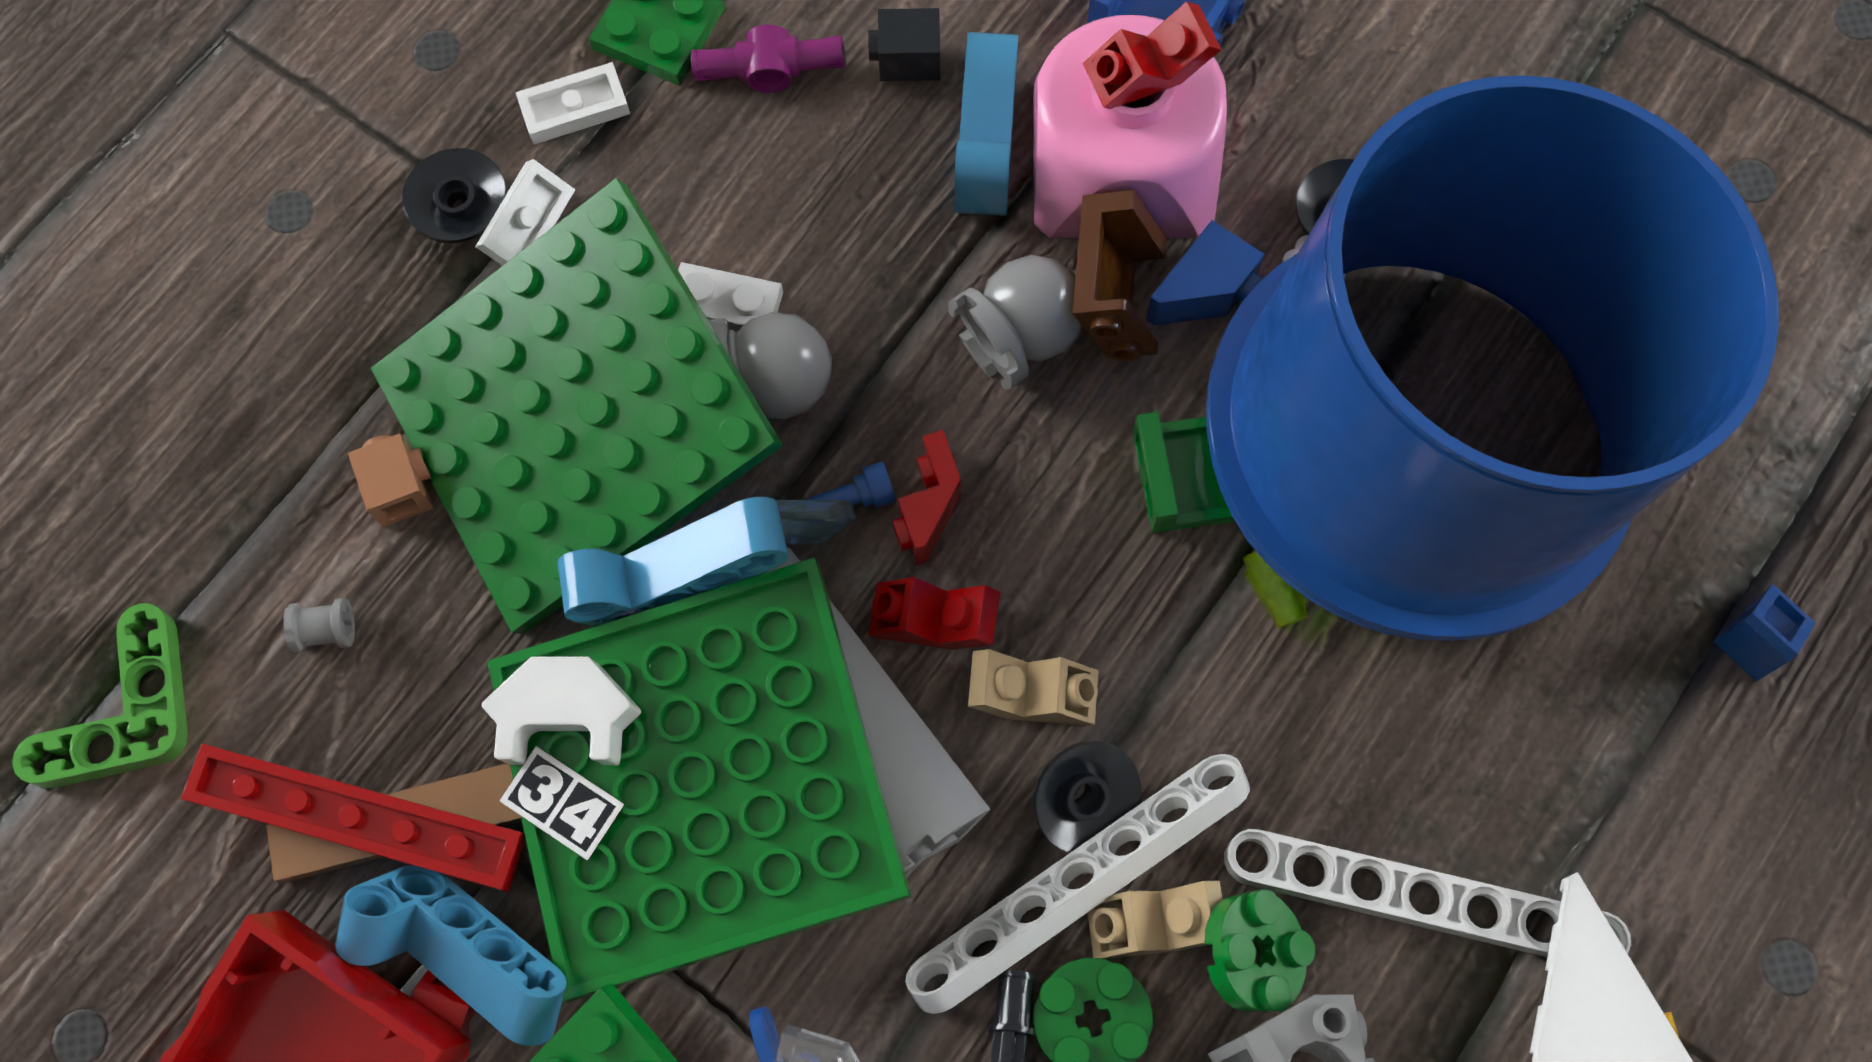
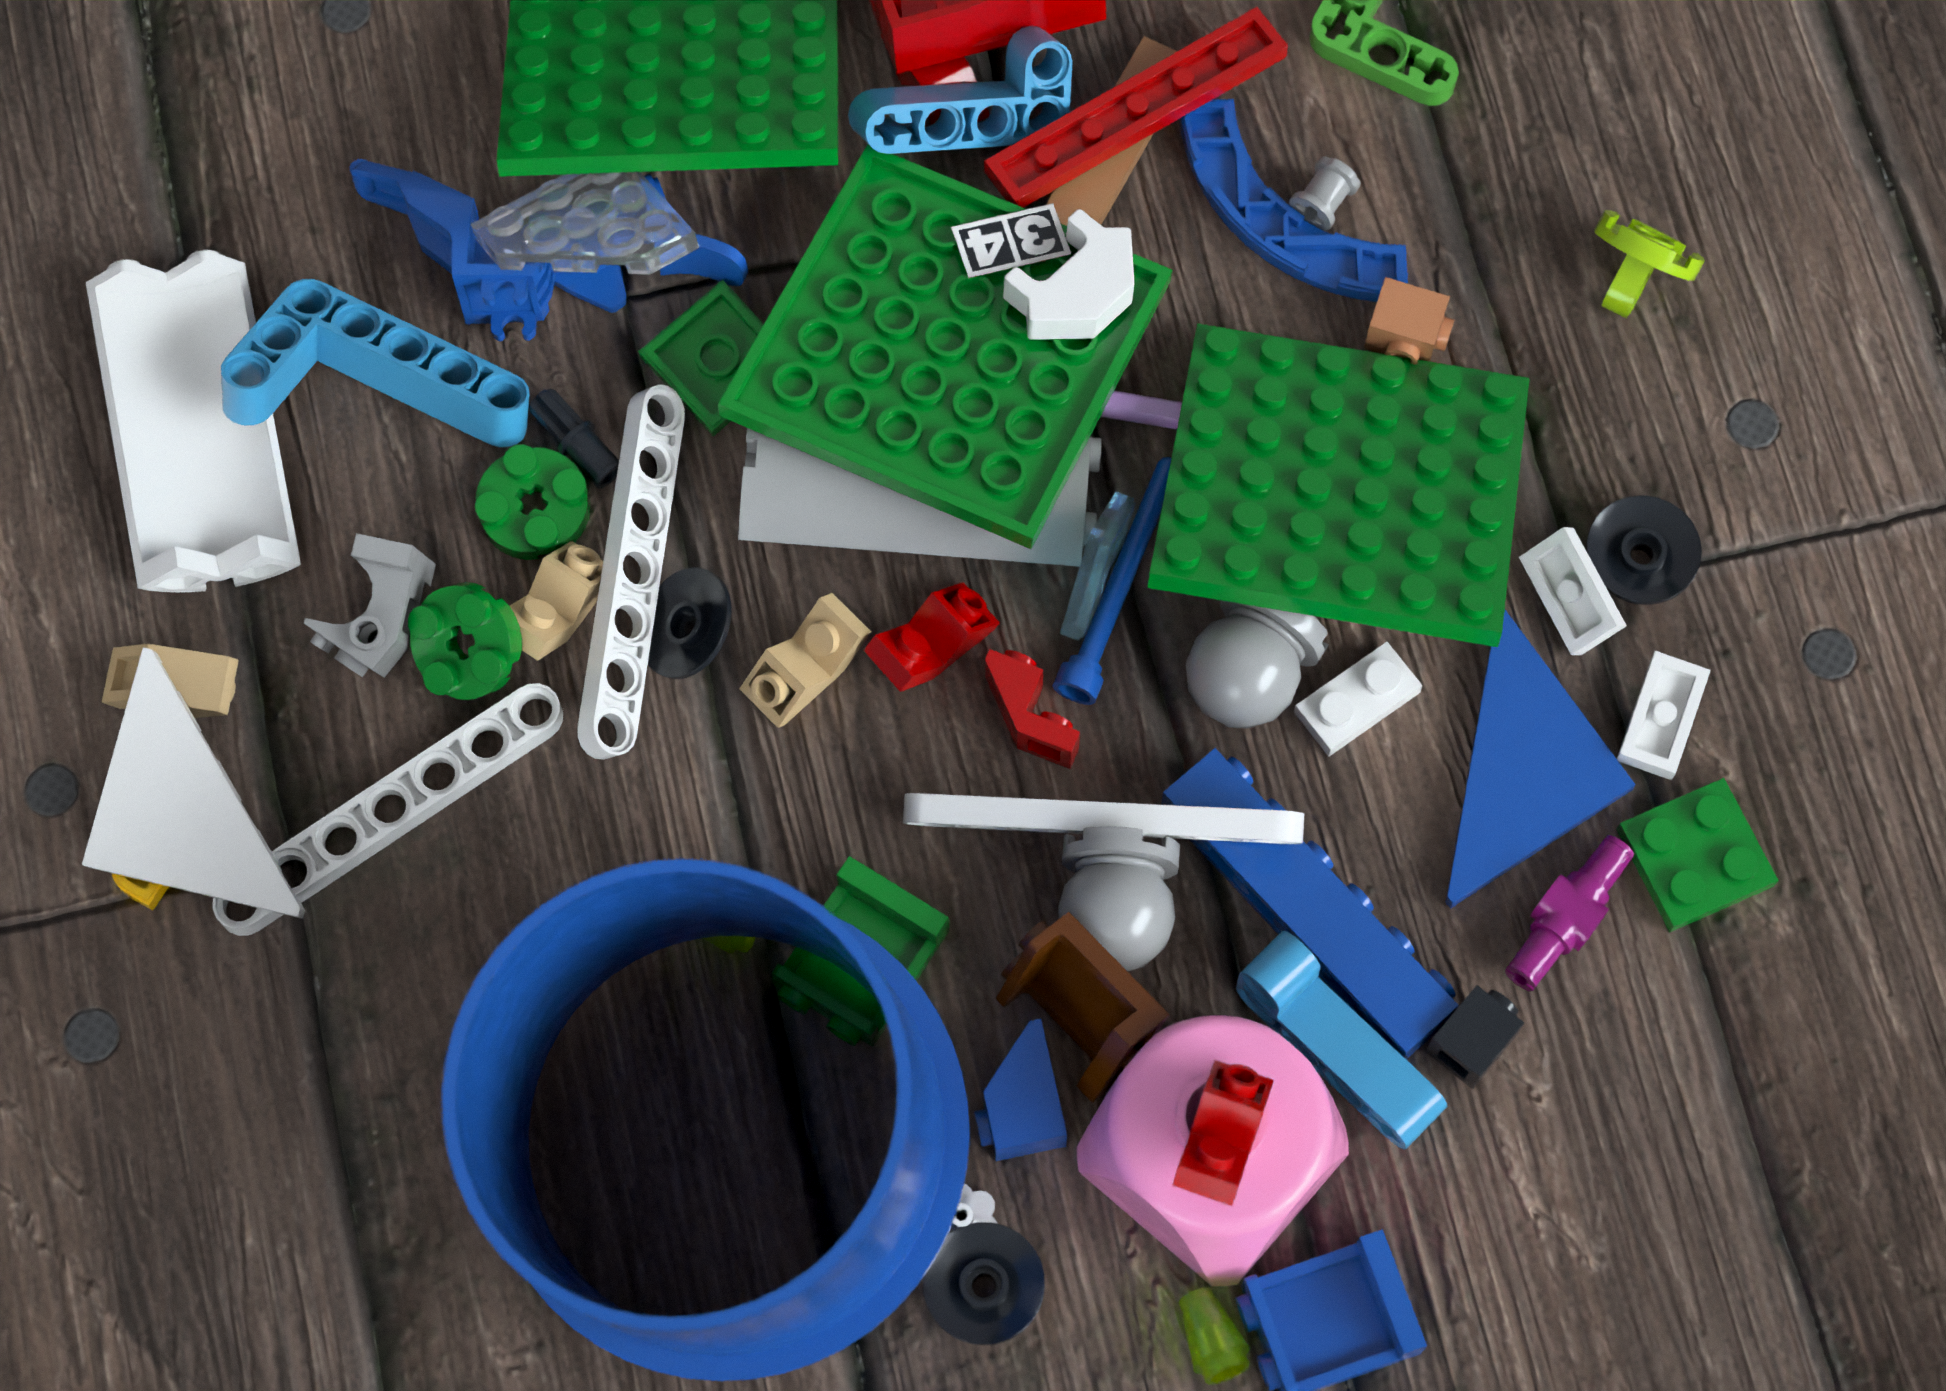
camera: 130 degrees right, 0 degrees up
(208, 352) = (1645, 251): none -> lime tile
(376, 655) = (1269, 223): none -> blue tile
(691, 151) = (1530, 769): none -> blue tile
(695, 559) = (1123, 437): dark azure beam -> none
(848, 980) = (703, 352): none -> green plate
(907, 214) = (1301, 895): none -> blue brick
(976, 368) = (1074, 816): none -> white beam
(1246, 53) = (1212, 1338): none -> clear neon green cone
(1766, 634) = (320, 1269): blue slope -> none

